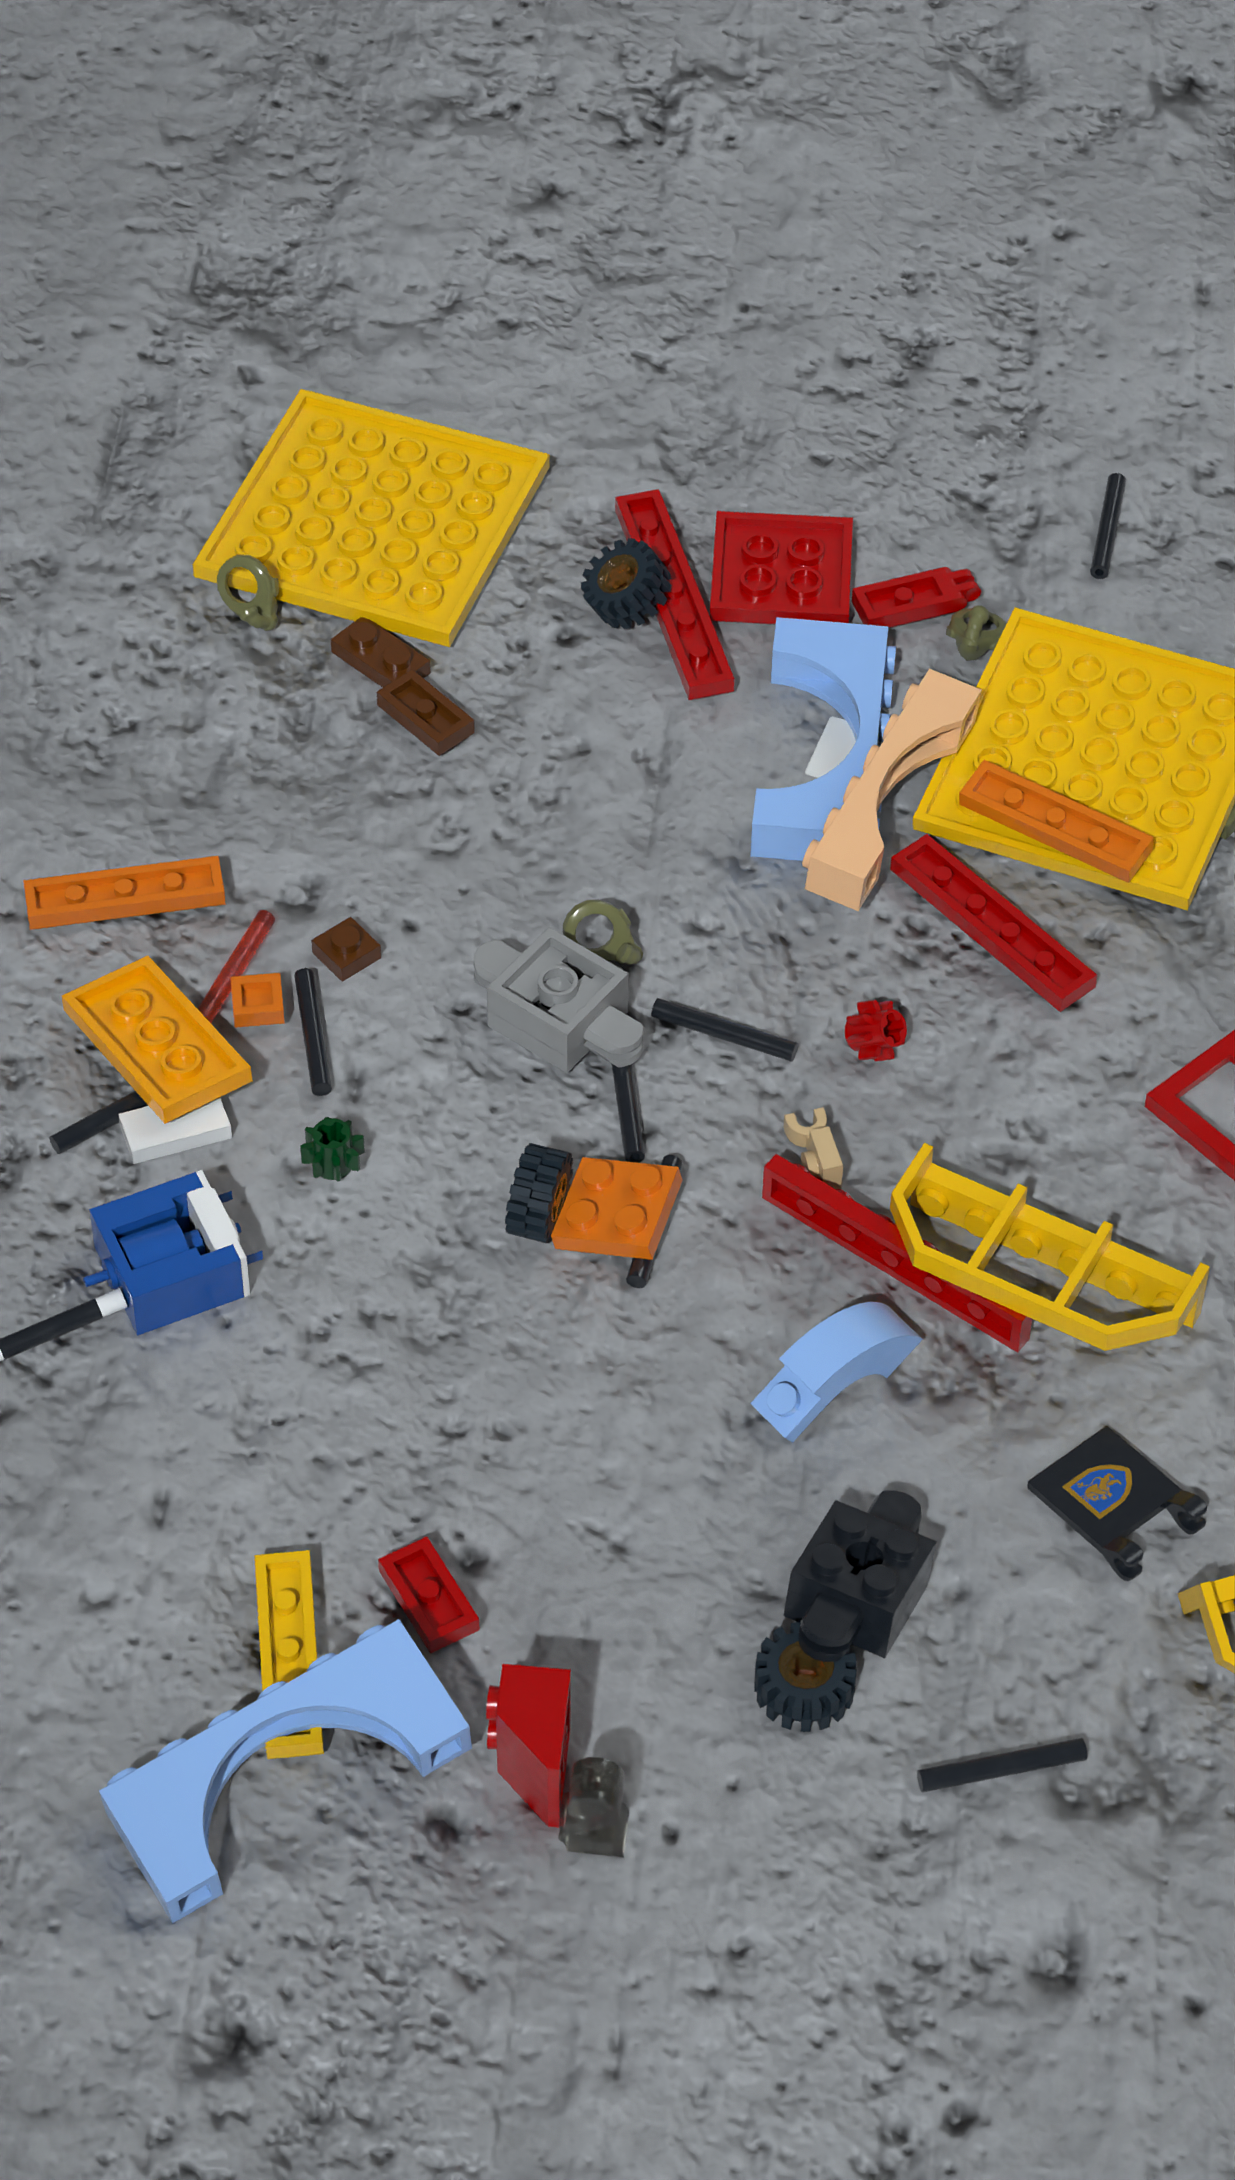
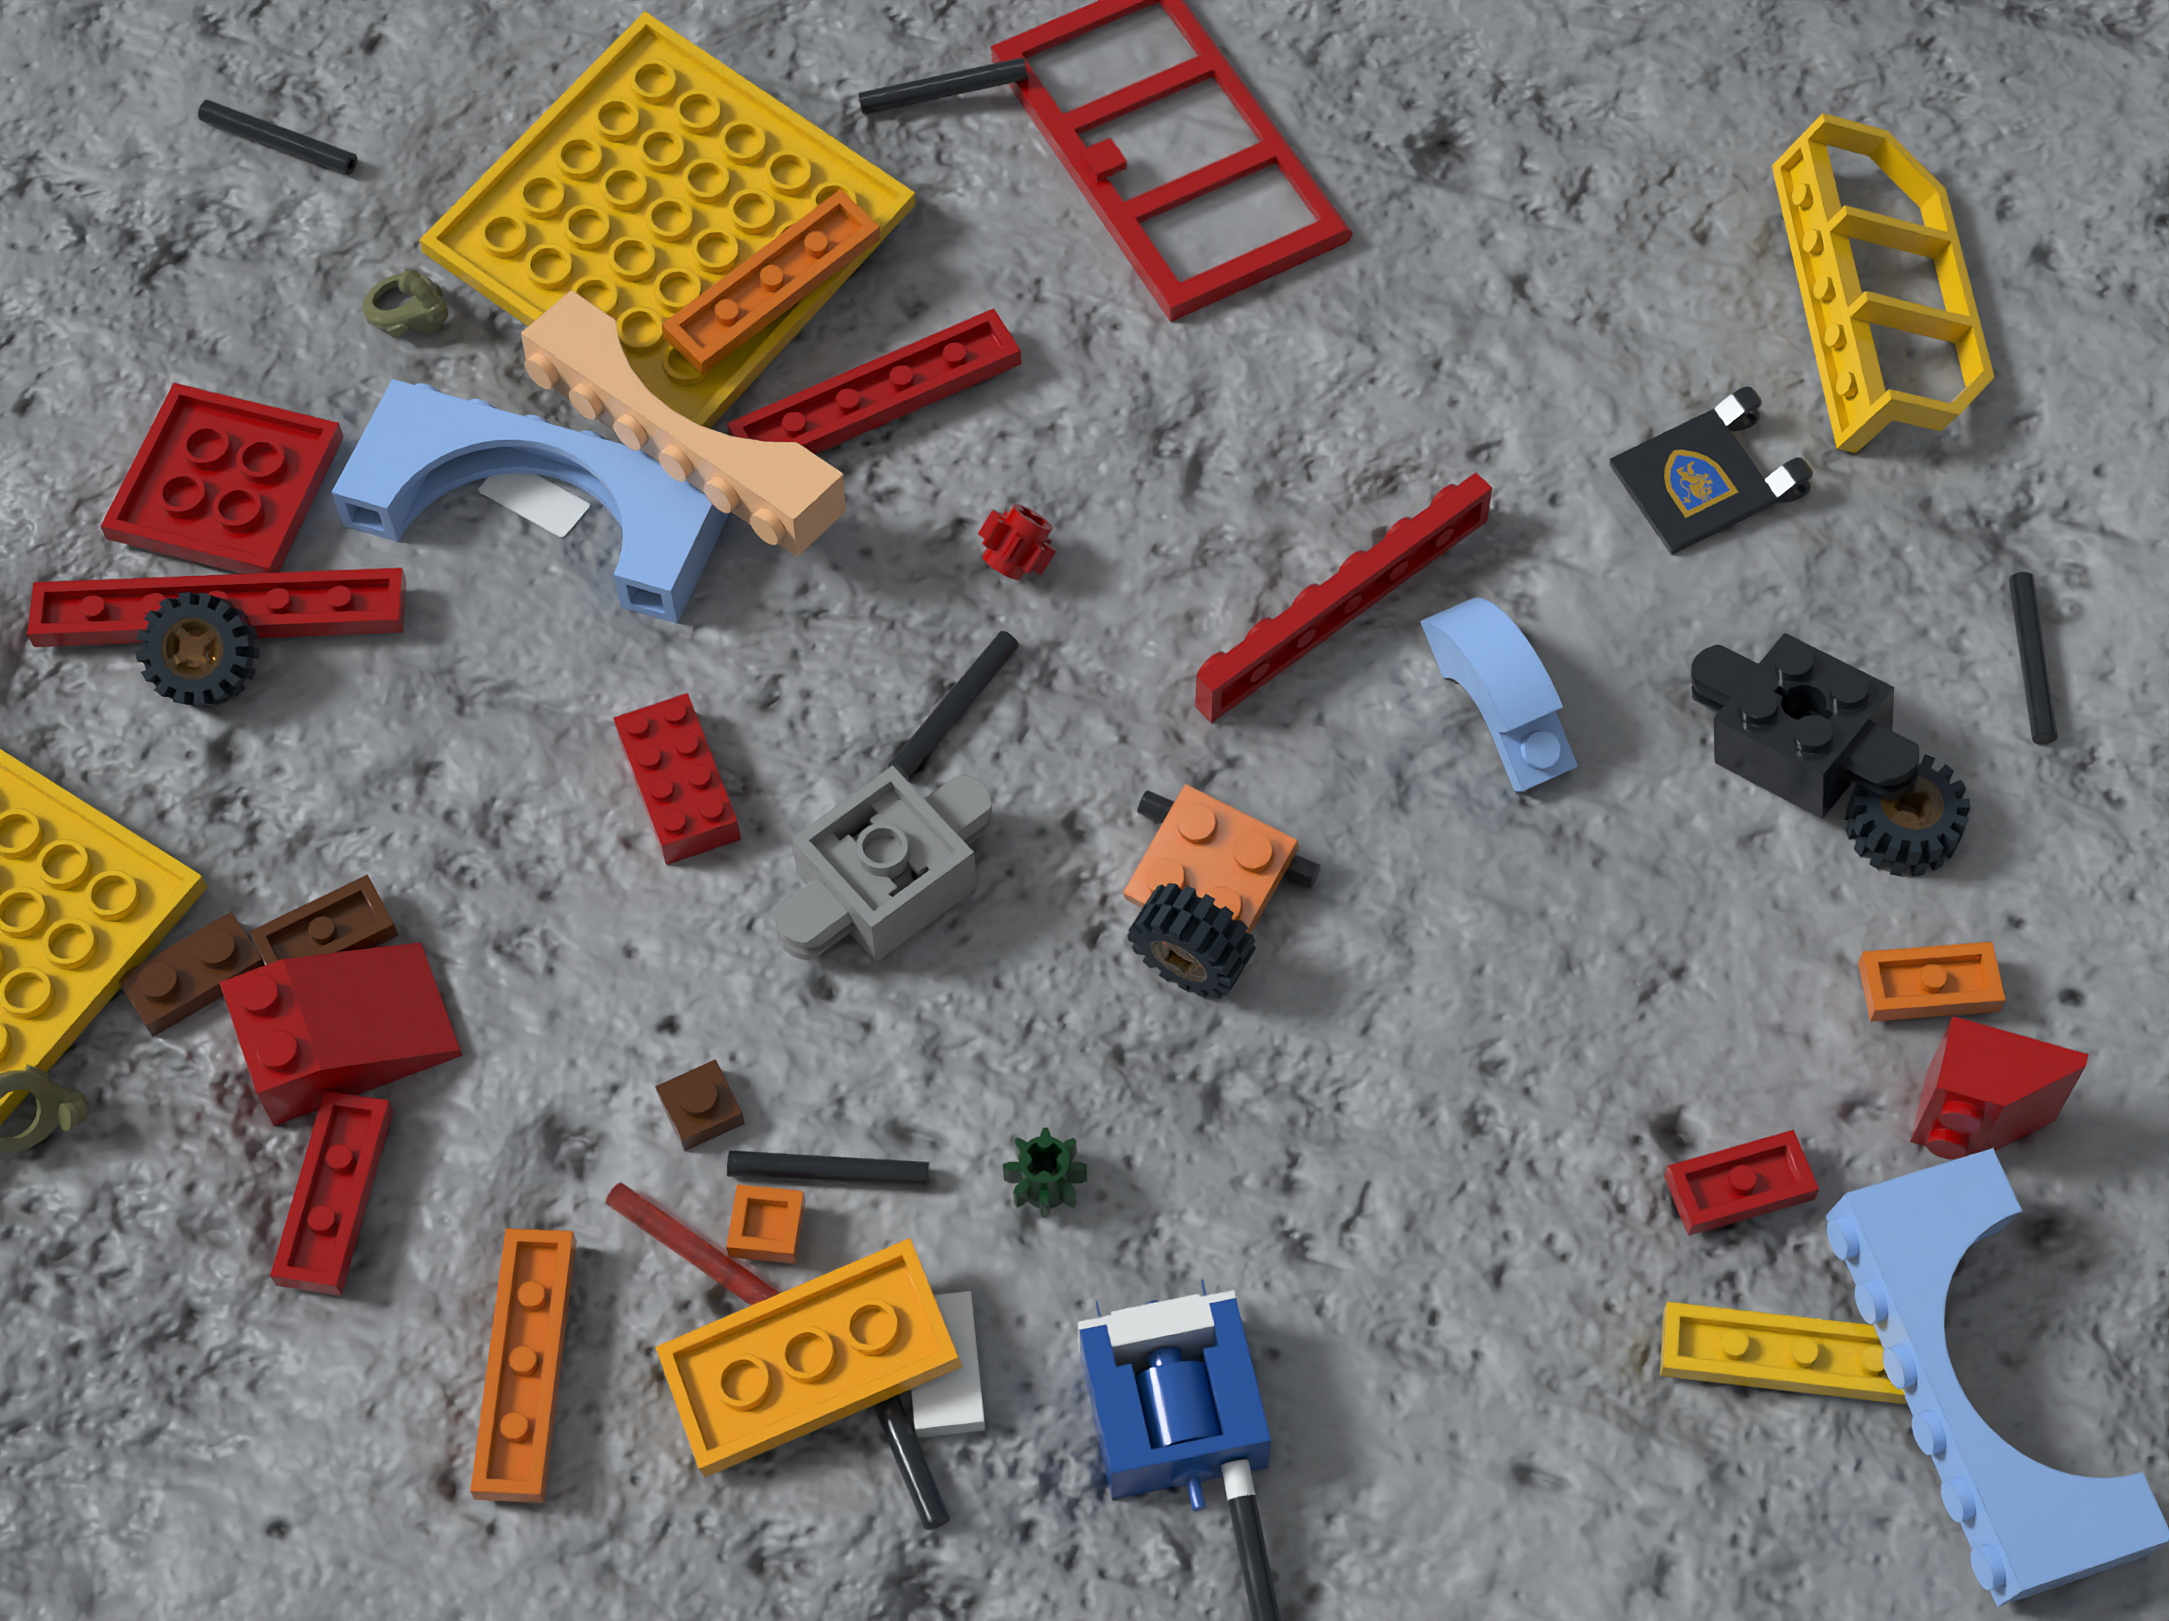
camera: 75 degrees left, 10 degrees up
(229, 764) = (332, 1193): none -> red plate
(353, 733) = (337, 1024): none -> red slope
(593, 1809) = (2090, 1032): clear smoke leg -> none
(612, 872) = (677, 778): none -> red piece
(621, 944) = (790, 791): olive piece -> none
(628, 1113) = (1058, 833): black piece -> none
(646, 1710) = (1931, 981): none -> orange plate
(822, 1154) = (1185, 639): tan plate -> none
(915, 597) = (328, 354): red hinge -> none
(1052, 1241) = (1387, 424): yellow plate -> none

